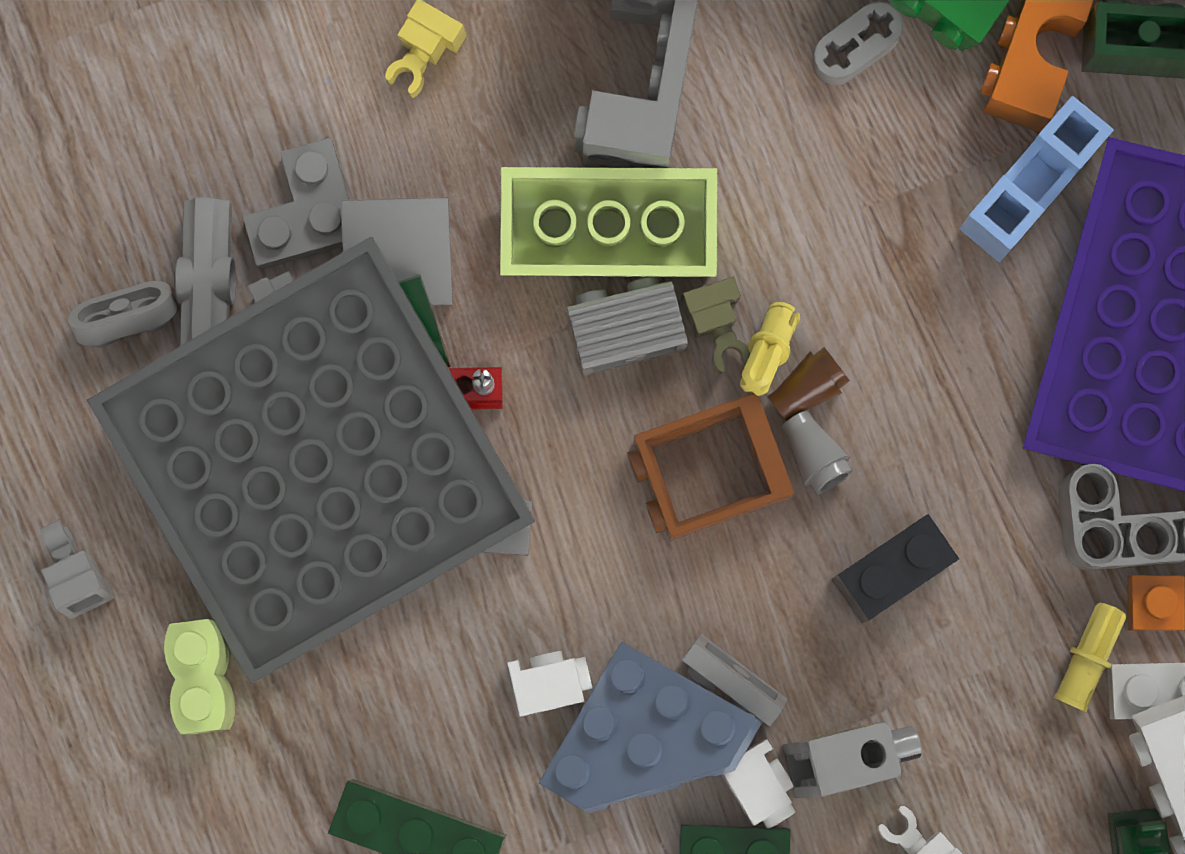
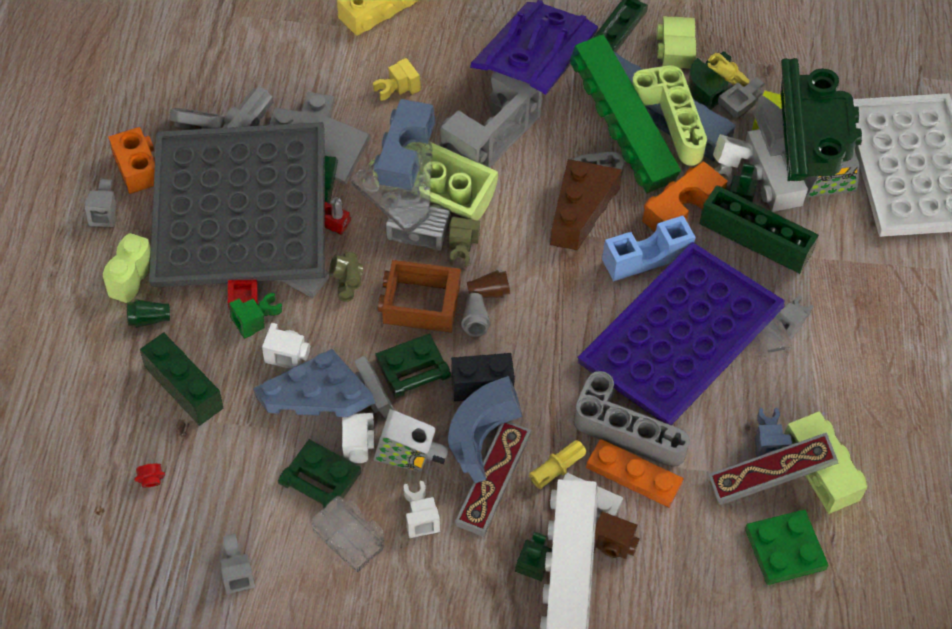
camera: 25 degrees right, 25 degrees down
(65, 465) = (134, 159): none -> orange brick
(281, 740) = (146, 313): none -> dark green cone
(416, 619) = (242, 289): none -> red plate
(455, 654) = (250, 317): none -> green piece
(533, 172) = (409, 124): none -> sand blue arch
(565, 483) = (348, 272): none -> olive plate
(567, 280) = (402, 206): none -> clear plate
(751, 589) = (408, 359): none -> dark green plate
(769, 347) = (478, 258): light yellow axle -> none
(873, 139) = (581, 201): none -> reddish brown wedge
(925, 656) = (474, 420): none -> sand blue arch
(1001, 730) = (499, 467): none -> tile

